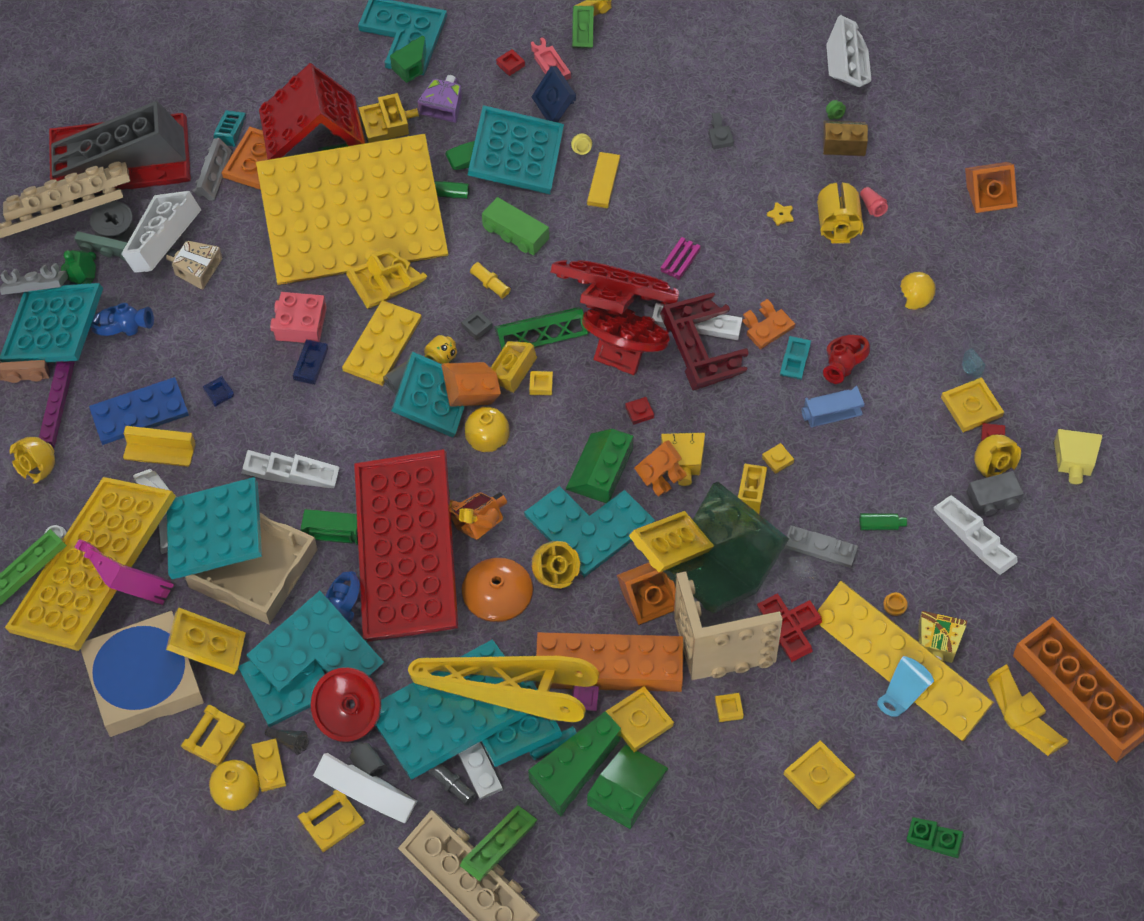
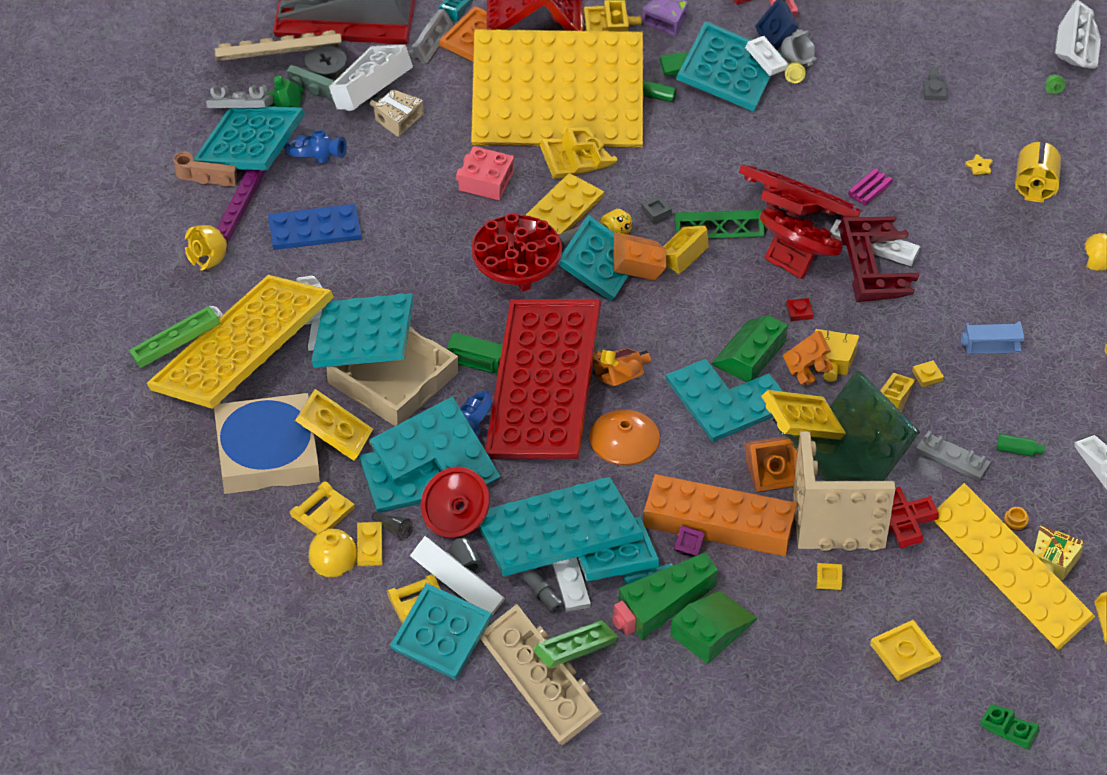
camera: 10 degrees right, 10 degrees down
(65, 190) = (288, 26): tan plate -> none
(124, 577) = (272, 356): dark pink hinge -> none
(158, 446) = (327, 258): yellow panel -> none
(218, 391) = (394, 222): clear blue plate -> none
(290, 470) = (453, 302): white slope -> none
(310, 362) = (489, 209): clear blue plate -> none
(349, 406) = (516, 249): none -> red bracket
(361, 853) = (441, 631): none -> teal plate
(487, 429) = (645, 298): yellow cylinder -> none
(490, 280) = (678, 174): yellow pin -> none
(514, 671) = (622, 507): yellow piece -> none
(515, 226) = (713, 131): bright green brick -> none
(538, 799) = (624, 618): none -> coral plate
(541, 383) = (707, 269): yellow plate -> none
(551, 132) = (766, 55): none -> white plate
(555, 564) = (686, 421): yellow cylinder -> none
(580, 118) = (798, 49): none -> light grey cap
(603, 180) = (809, 108): yellow tile -> none
(640, 718) = (739, 570): yellow plate -> none
(771, 328) = (945, 262): orange plate -> none
(795, 357) = (965, 290): teal slope -> none
(843, 356) = (1013, 296): red piece -> none
(845, 138) = (1058, 110): pearl gold slope -> none
(874, 202) = (1075, 170): coral cone -> none
(905, 686) = (1010, 587): medium azure piece -> none

